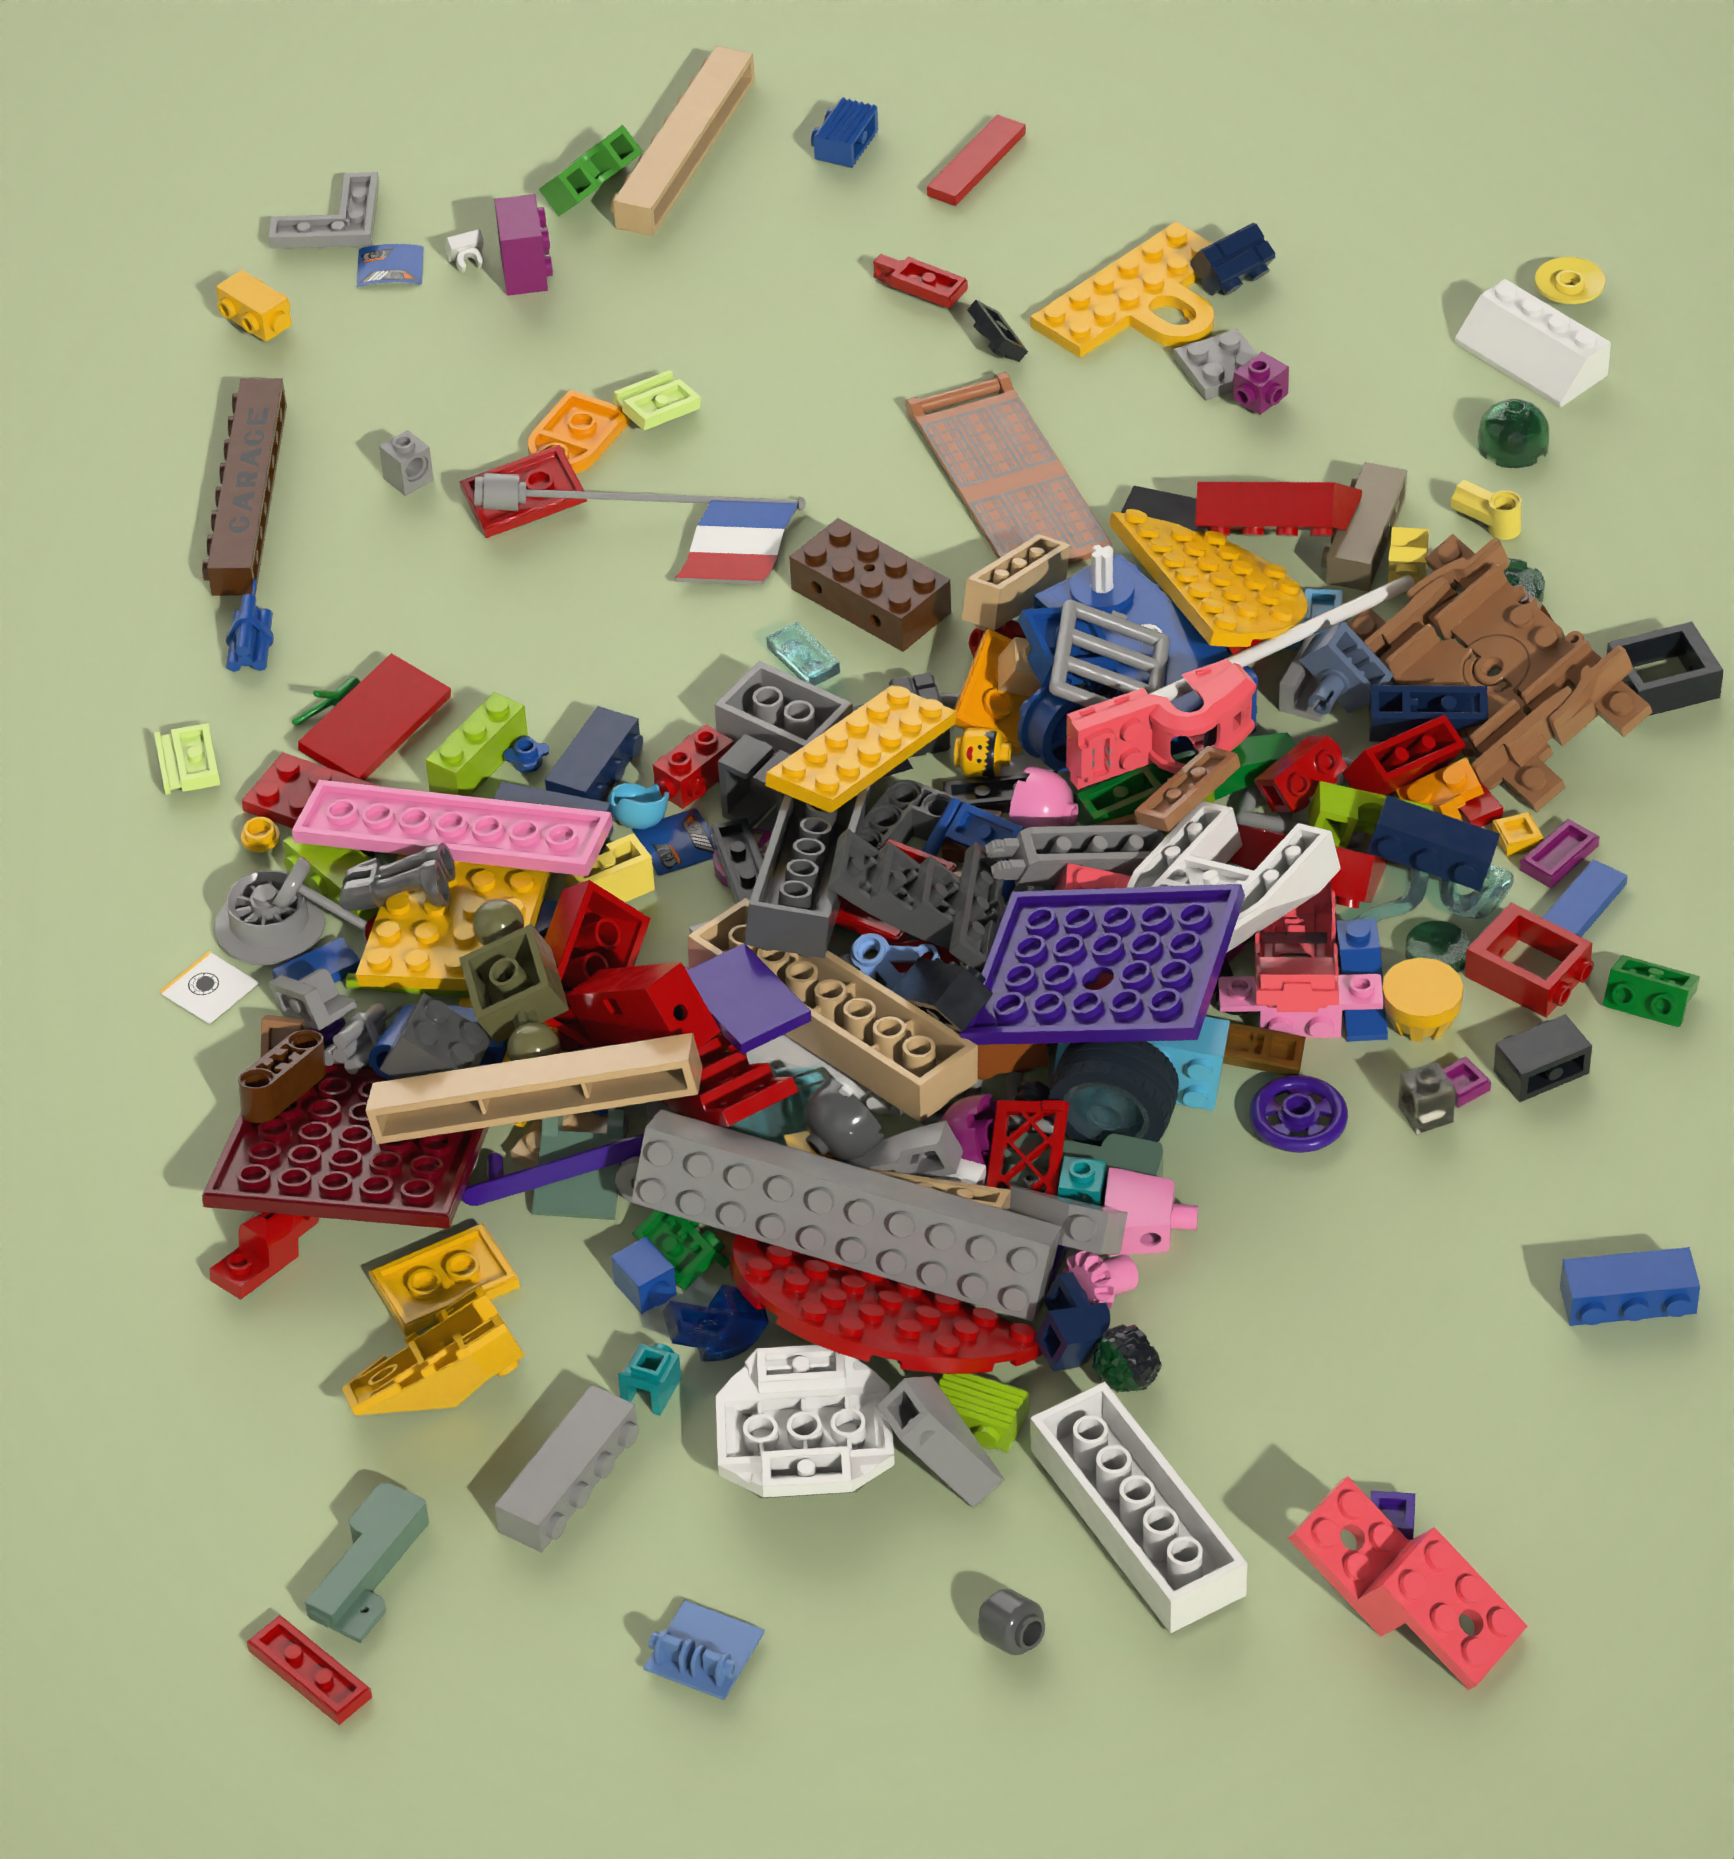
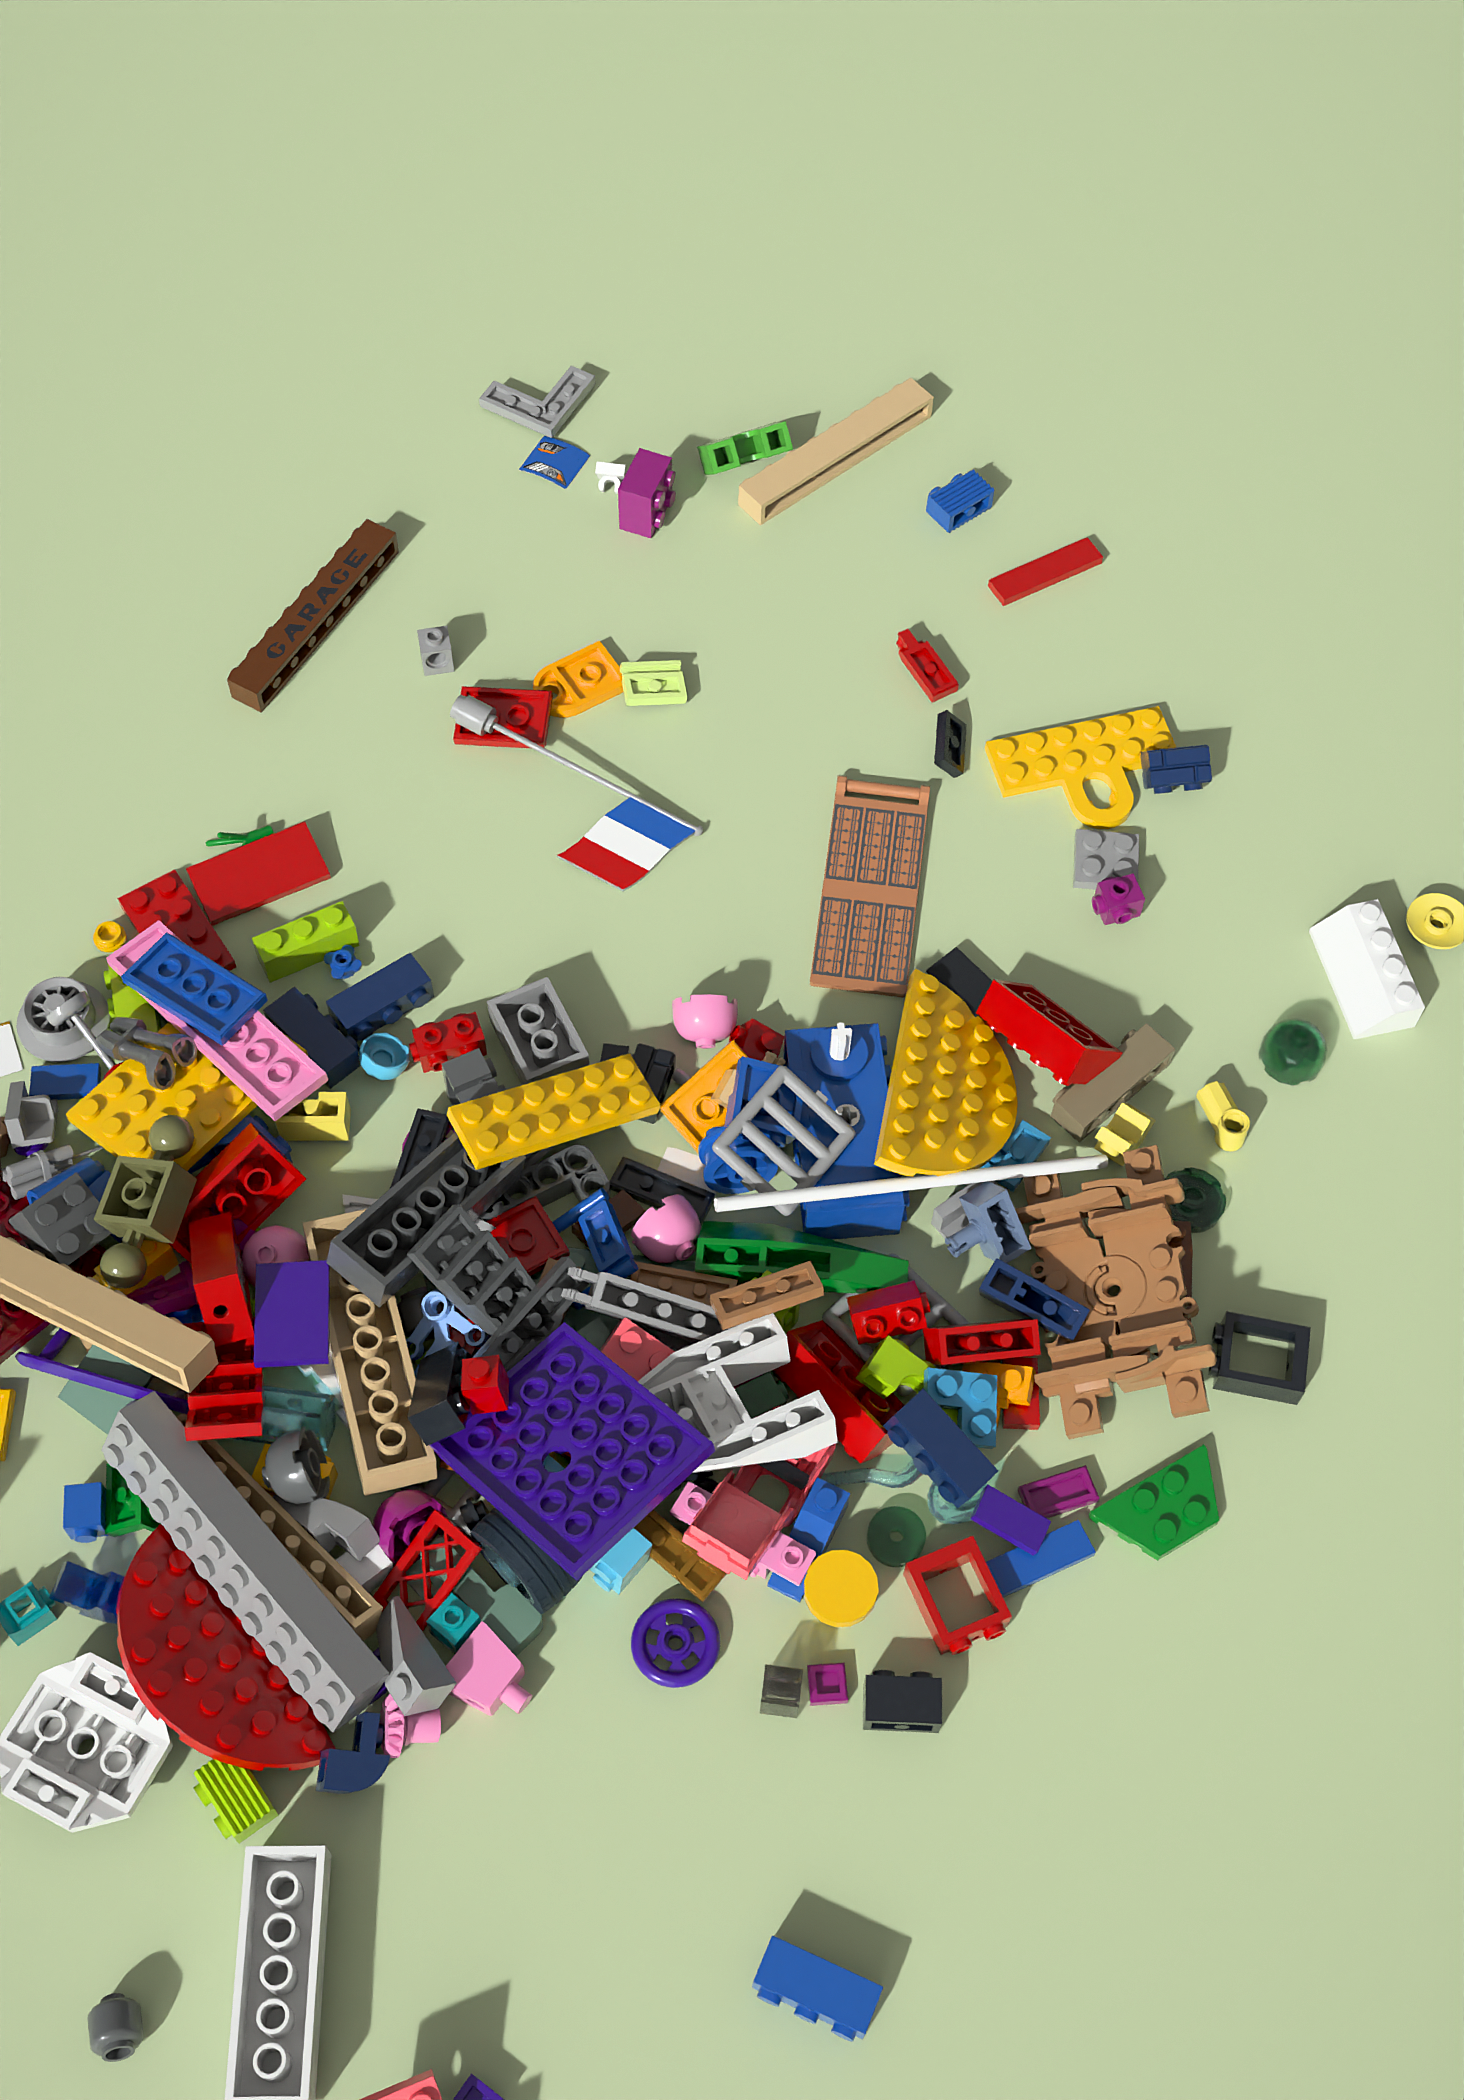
camera: 25 degrees right, 15 degrees up
(187, 758) = (107, 840): yellowish green plate -> none
(249, 635) = (225, 750): blue piece -> none
(253, 305) = (425, 454): yellow brick -> none
(412, 808) = (194, 988): none -> blue tile
(677, 841) = (395, 1101): blue sticker -> none
(803, 654) = (601, 978): clear light blue plate -> none
(870, 579) = (698, 960): reddish brown piece -> none
(937, 637) = (705, 1019): none -> bright pink cylinder
(940, 1437) = (171, 1809): light grey slope -> none
(981, 752) = (665, 1147): yellow head -> none
(986, 951) = (485, 1384): none -> red brick
(1010, 582) = (789, 1003): tan brick -> none
(1126, 1359) = (372, 1819): piece -> none
(1140, 725) = (762, 1214): coral piece -> none
(1427, 791) = (972, 1396): none -> dark azure plate
(1517, 833) = (1037, 1455): yellow tile -> none
(1534, 878) = (1010, 1520): none -> dark purple tile
(1649, 990) = (1039, 1681): green bracket -> none
(1662, 819) = (1165, 1507): none -> green wing

